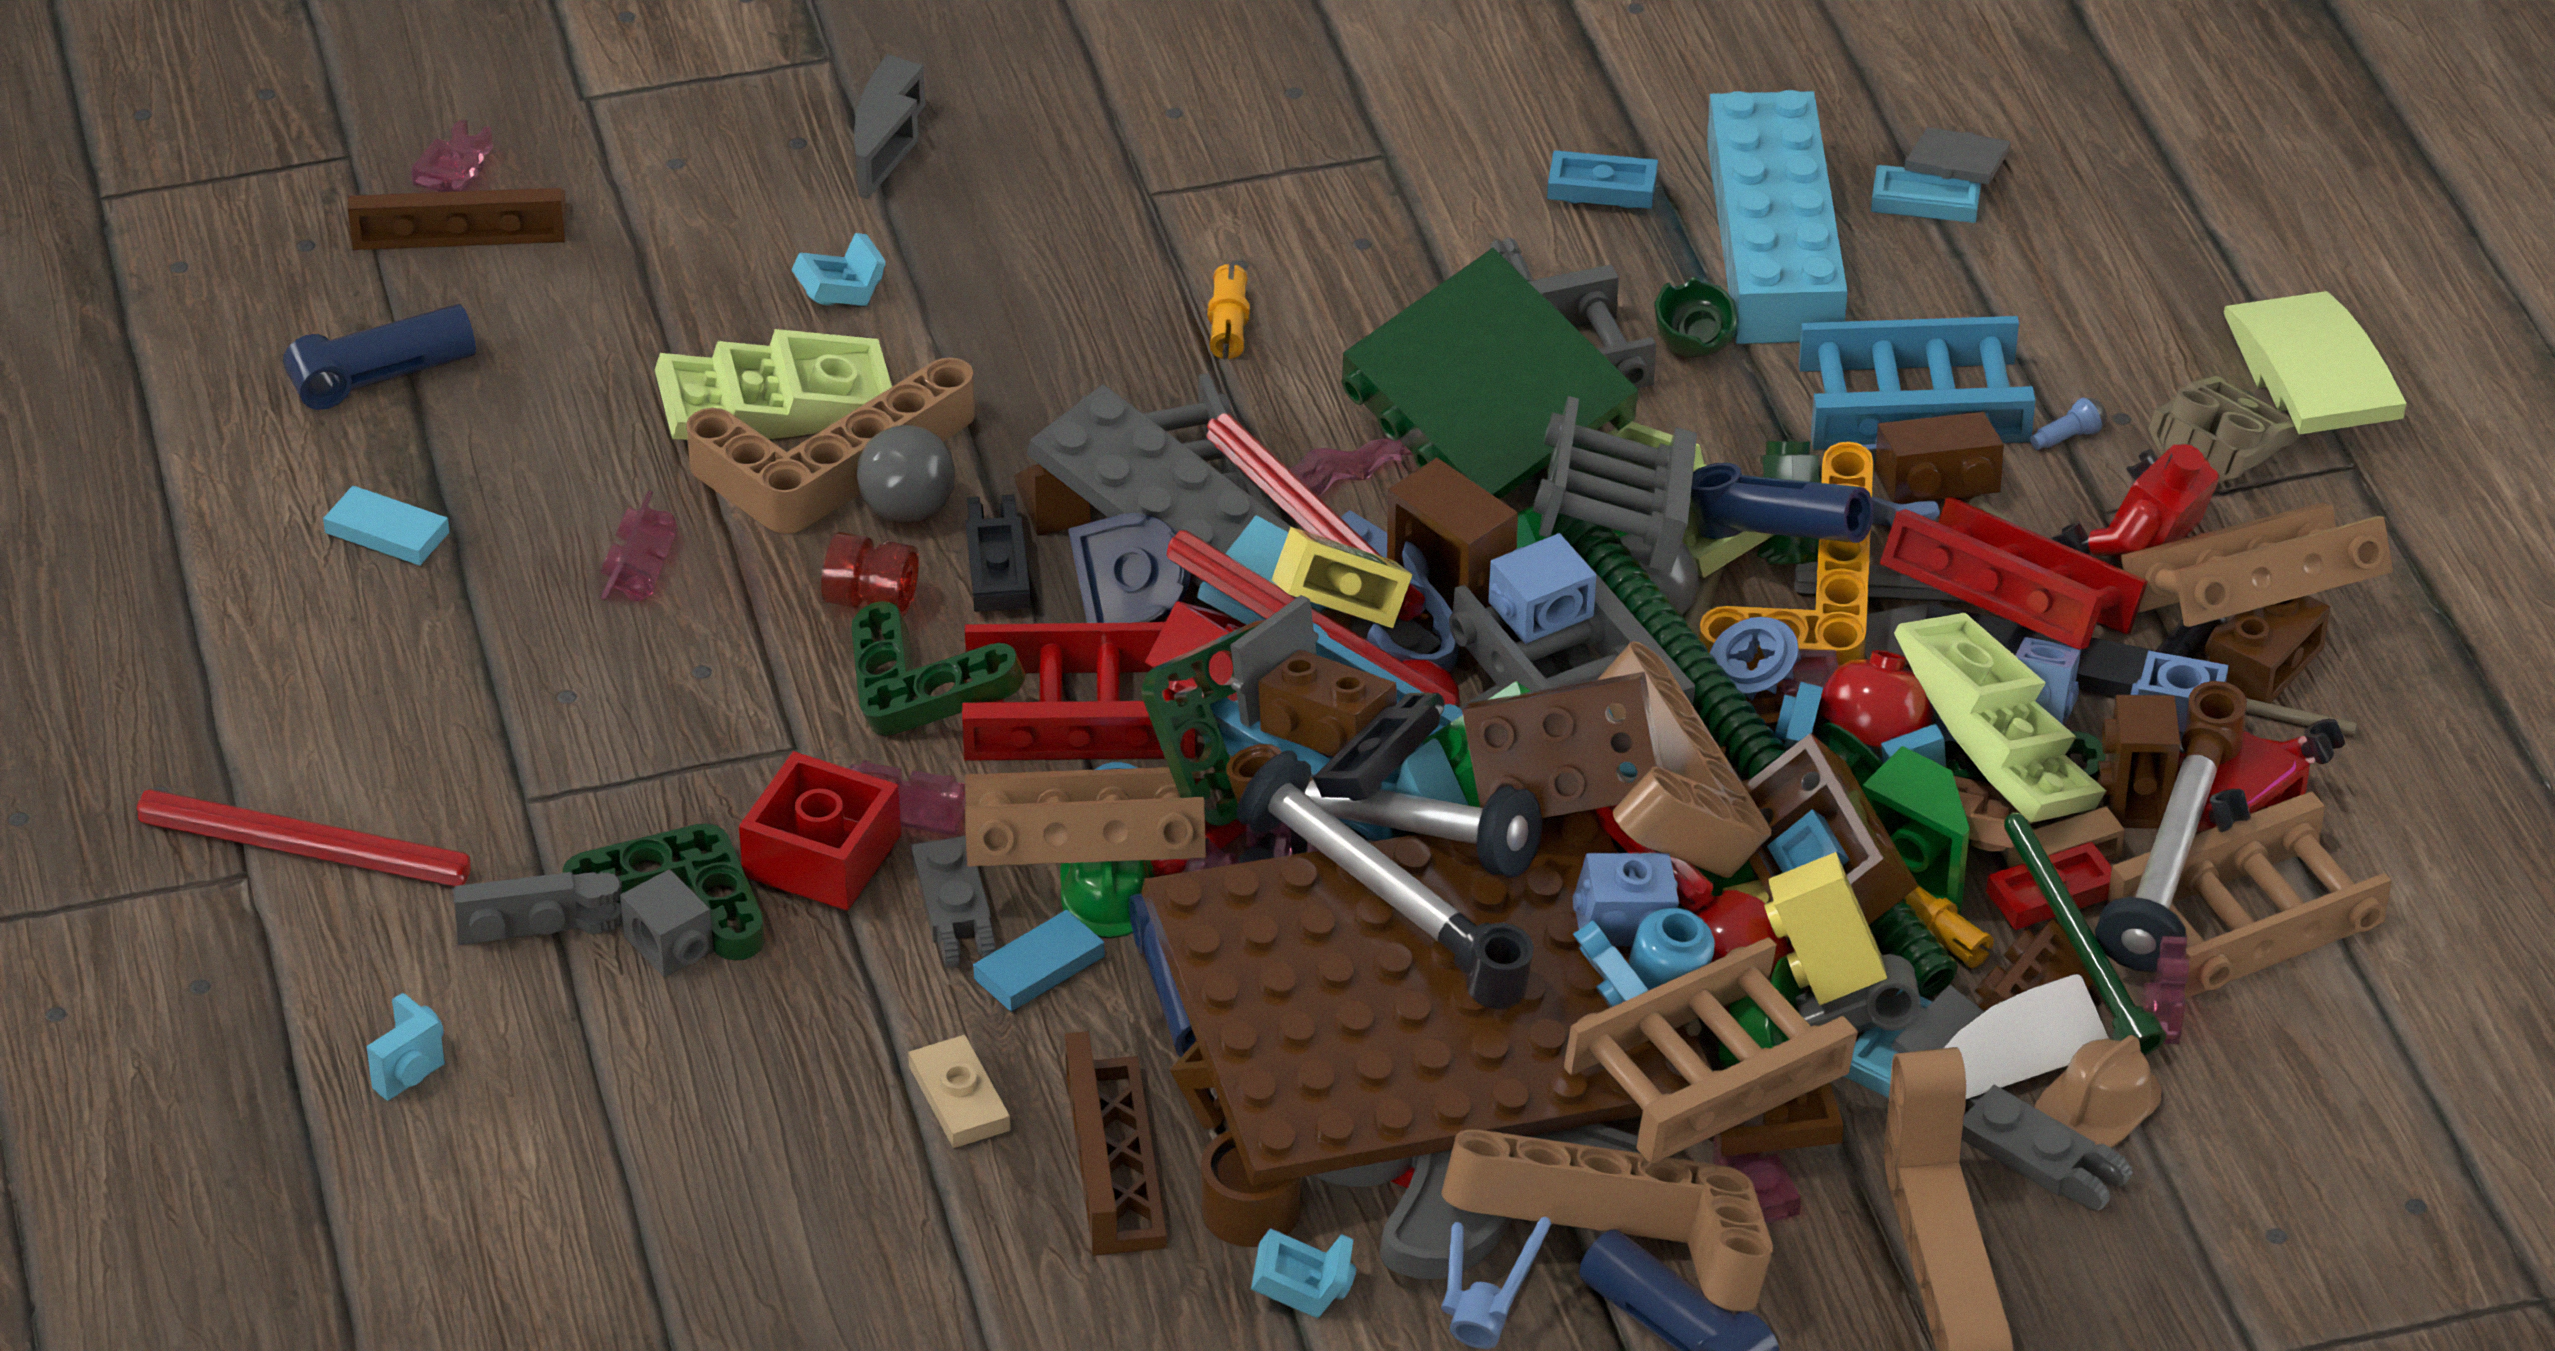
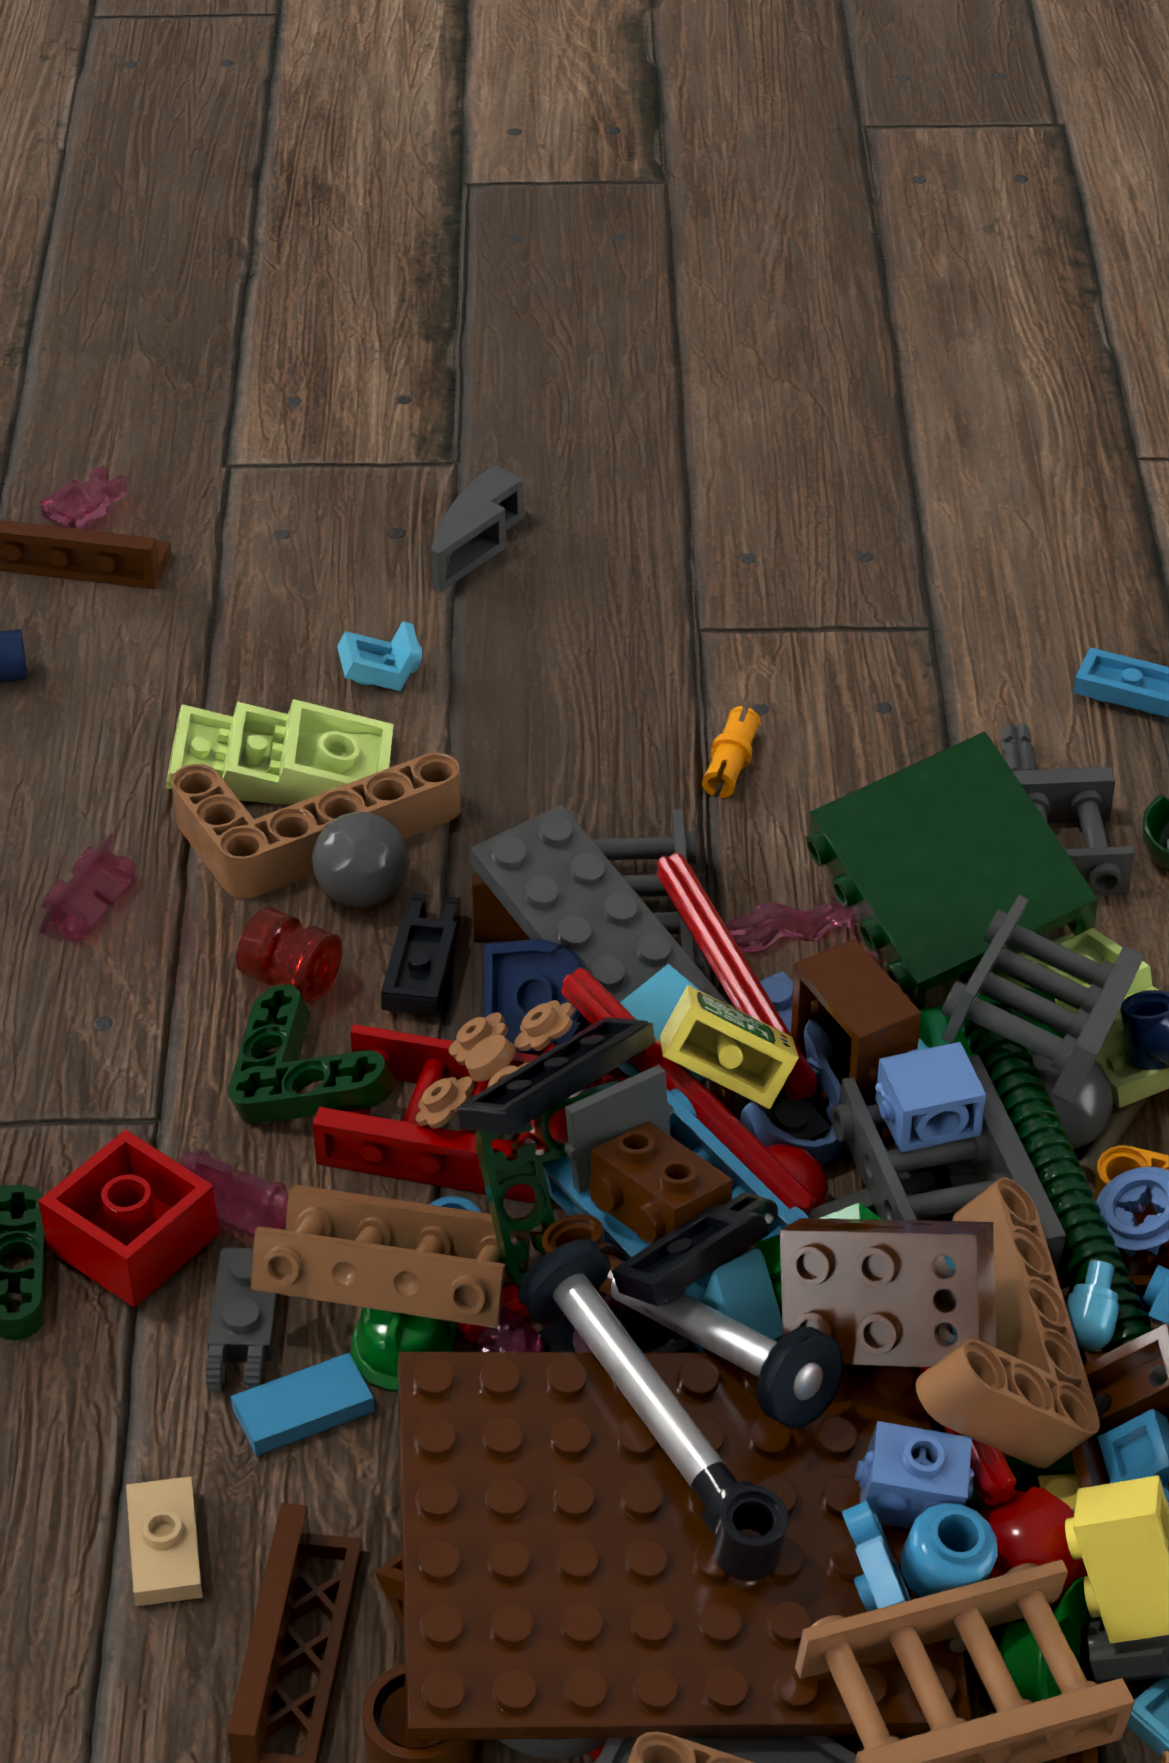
camera: 15 degrees right, 0 degrees up
(1120, 625) = (488, 1055): none -> medium nougat plant
(1202, 623) = (555, 1075): none -> black tile
(1738, 738) = (1094, 1307): none -> medium azure cylinder

